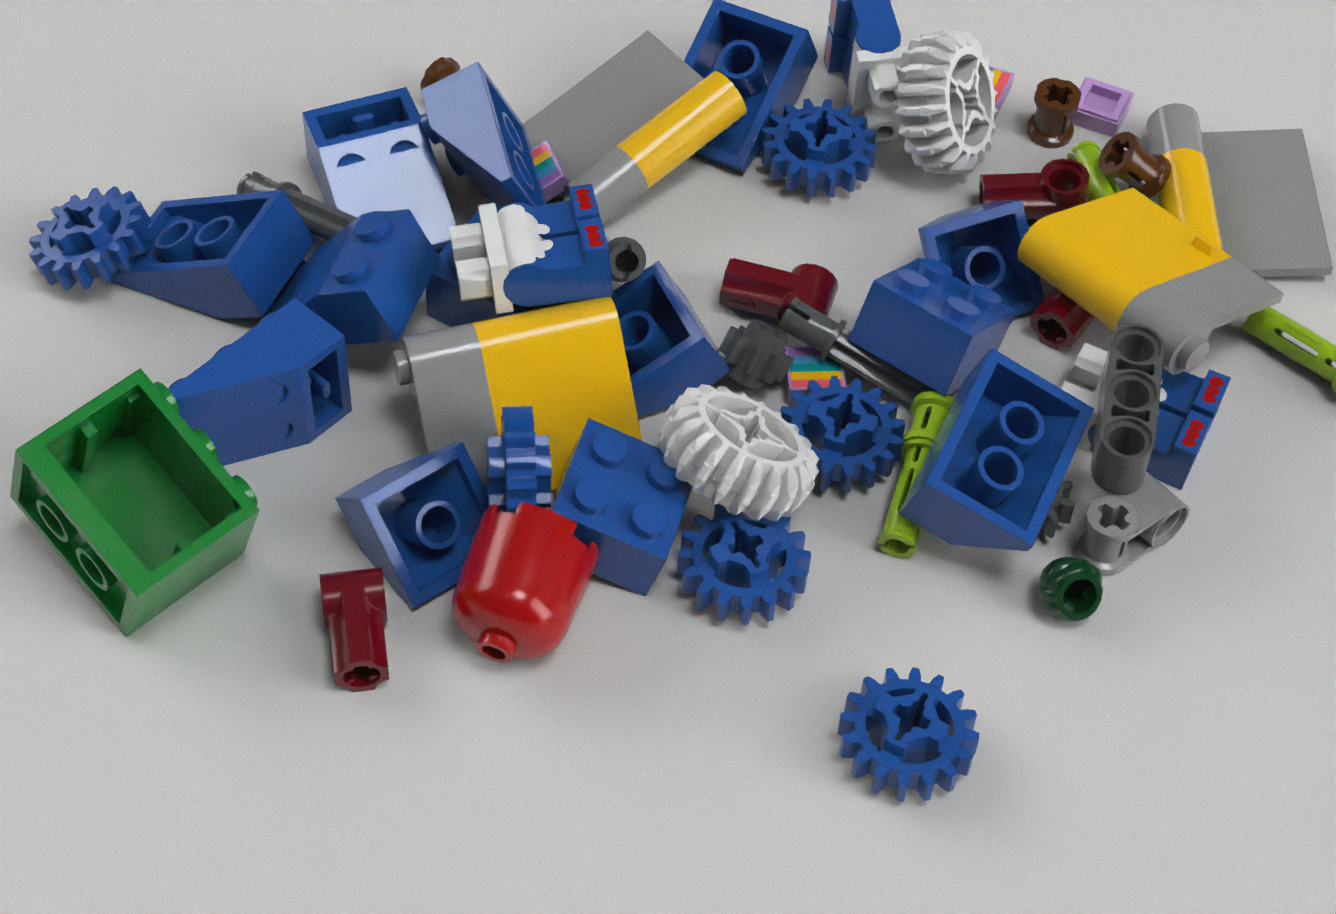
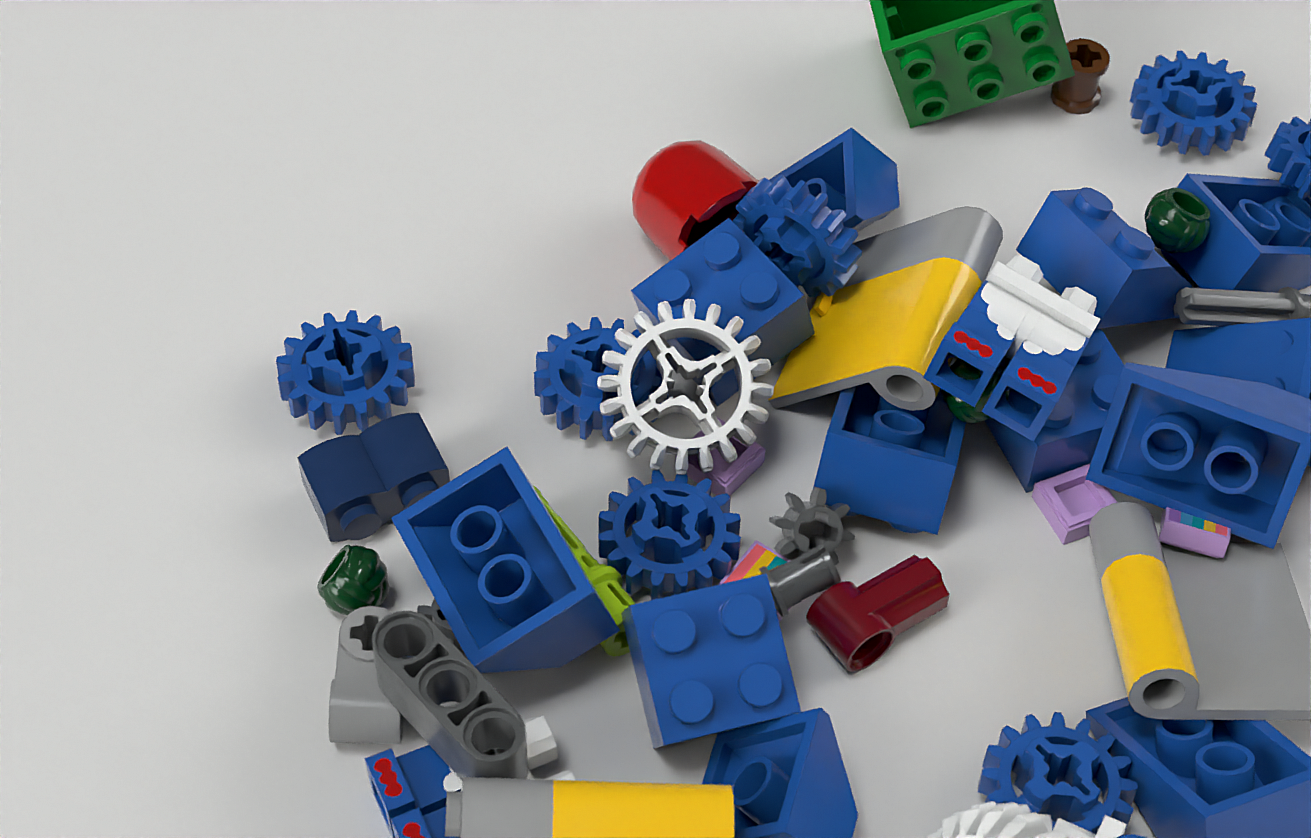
camera: 130 degrees right, 0 degrees up
(66, 357) = (1193, 103): none -> blue gear
(269, 386) = (1042, 152): blue slope -> none
(280, 258) = (1177, 220): none -> dark green piece
(355, 615) = (775, 132): dark red piece -> none
(626, 259) = (979, 440): dark grey axle -> none
(977, 640) = (371, 475): none -> dark blue brick

